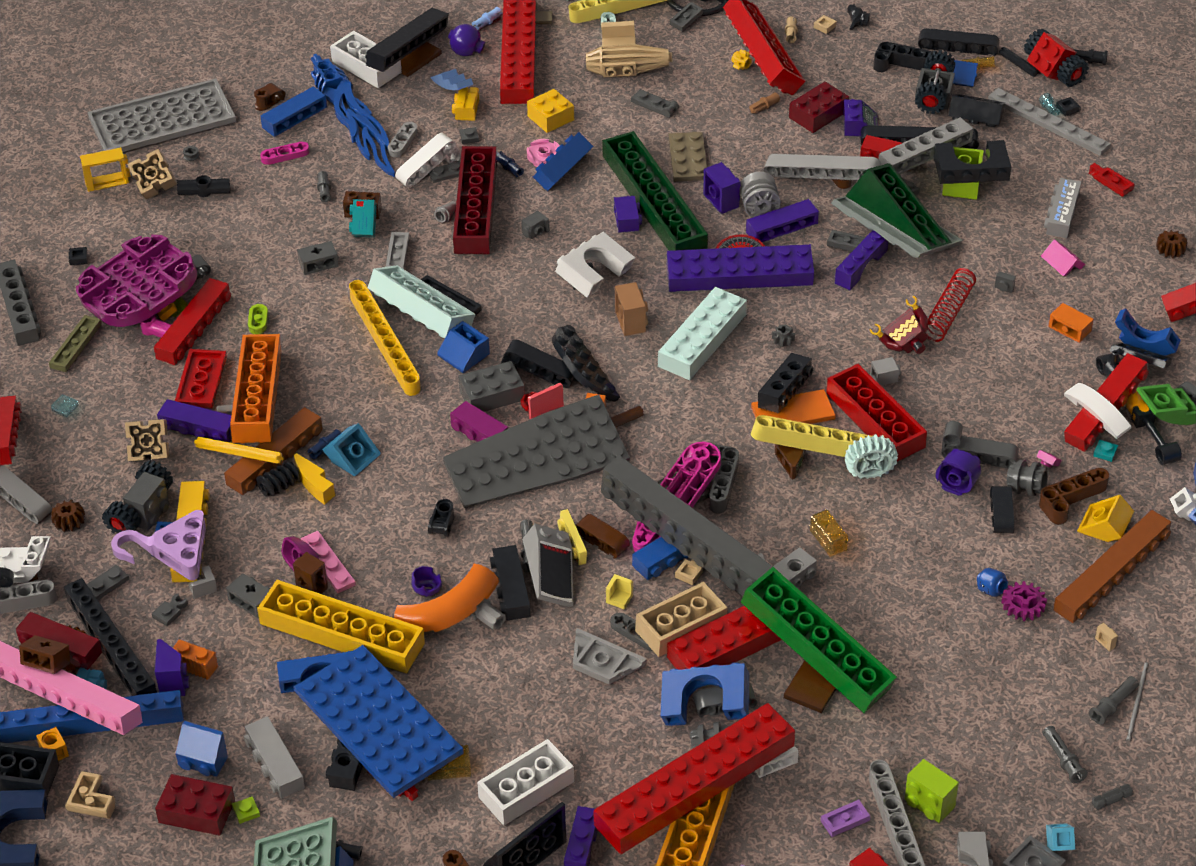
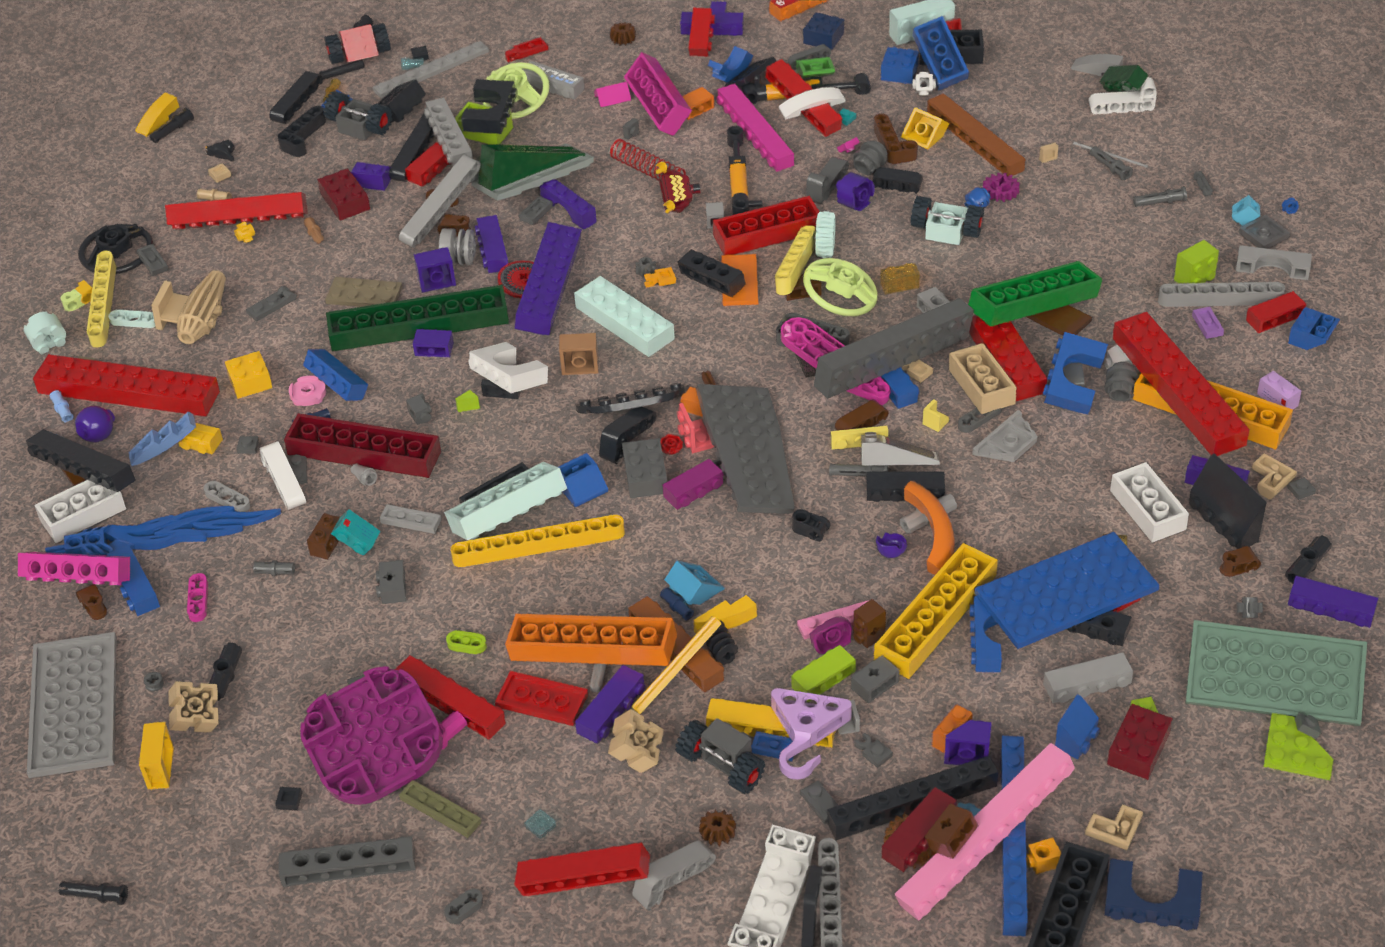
camera: 75 degrees left, 0 degrees up
(252, 557) = (824, 672): none -> lime brick
(290, 71) = (60, 566): none -> dark pink brick
(553, 252) = (467, 401): none -> lime slope
(773, 351) = (661, 276): none -> light orange plate
(794, 491) = (843, 279): none -> yellowish green piece
(801, 189) = (454, 222): none -> reddish brown piece
(934, 552) = (945, 221): none -> brick
(971, 375) = (737, 173): none -> black piece
(1026, 177) = (526, 92): none -> yellowish green piece
(1047, 377) = (755, 127): none -> dark pink brick
(1062, 286) = (657, 94): none -> dark pink brick

